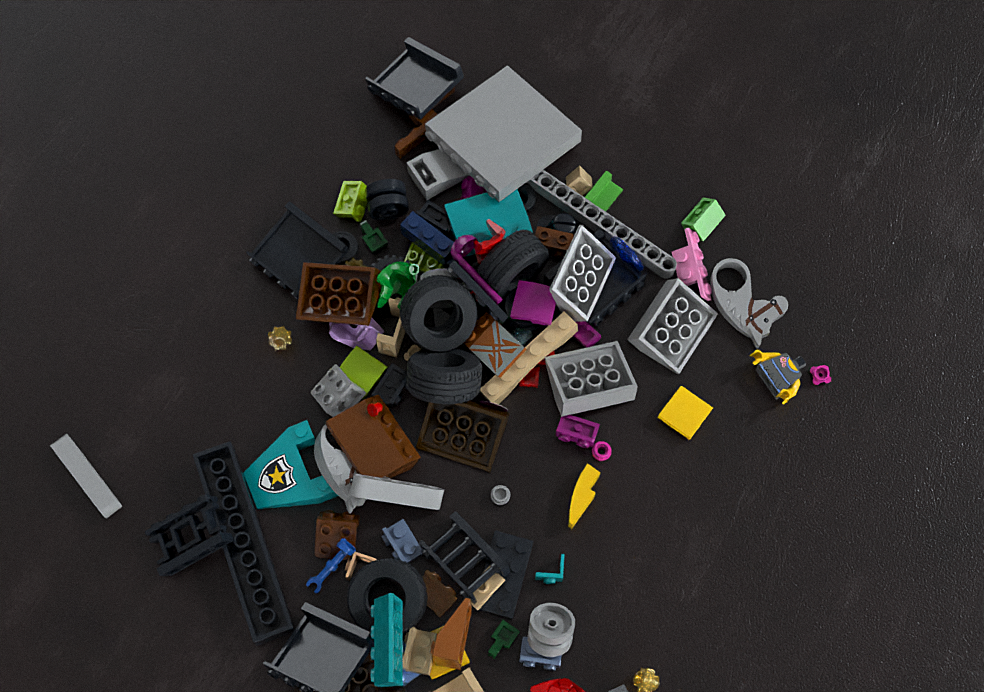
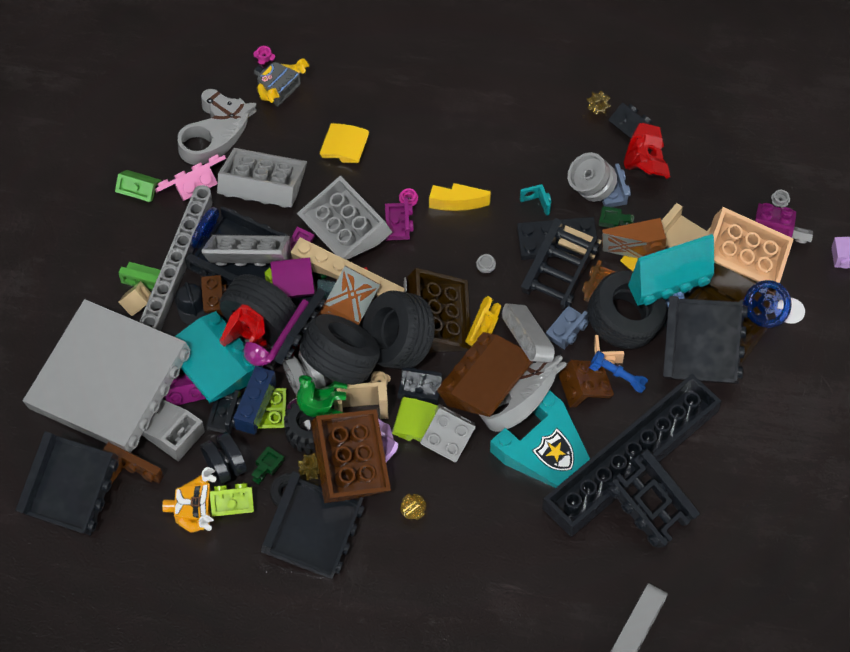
camera: 110 degrees left, 10 degrees down
(356, 166) = (193, 503): none -> torso
(374, 409) = (457, 377): red piece -> none
(435, 466) = (484, 321): none -> yellow hinge

